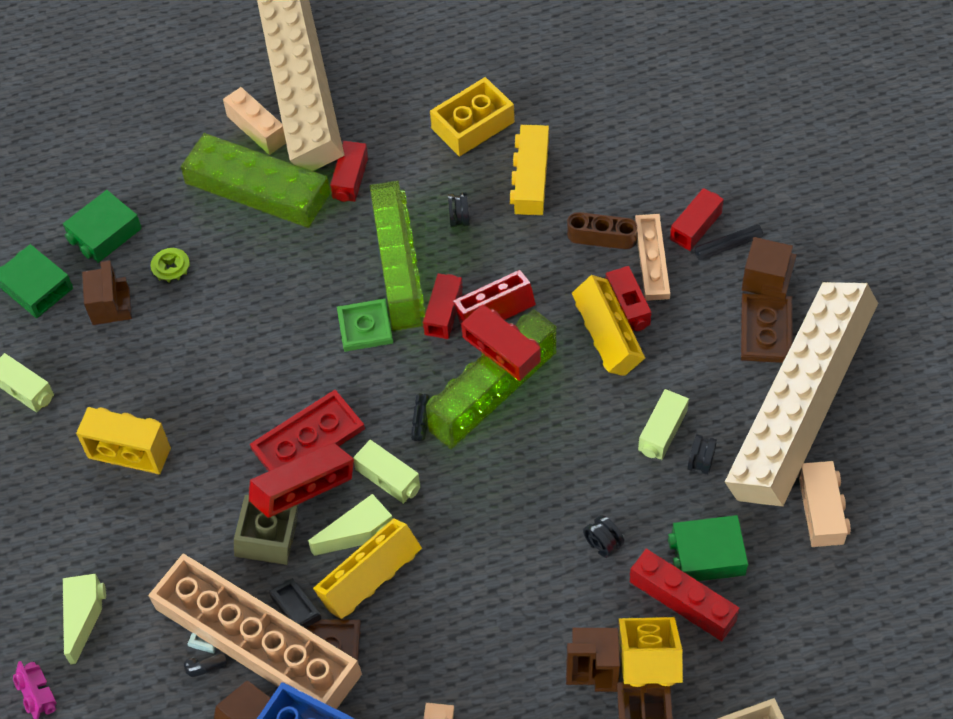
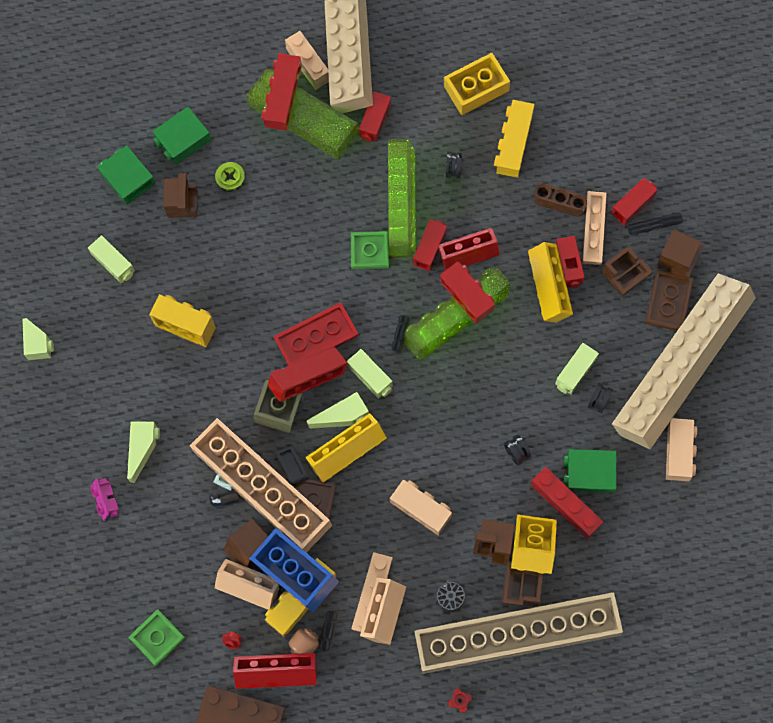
camera: 10 degrees right, 15 degrees up
(226, 152) = (282, 91): none -> red brick
(483, 631) = (421, 506): none -> light nougat brick
(703, 298) = (626, 271): none -> reddish brown plate

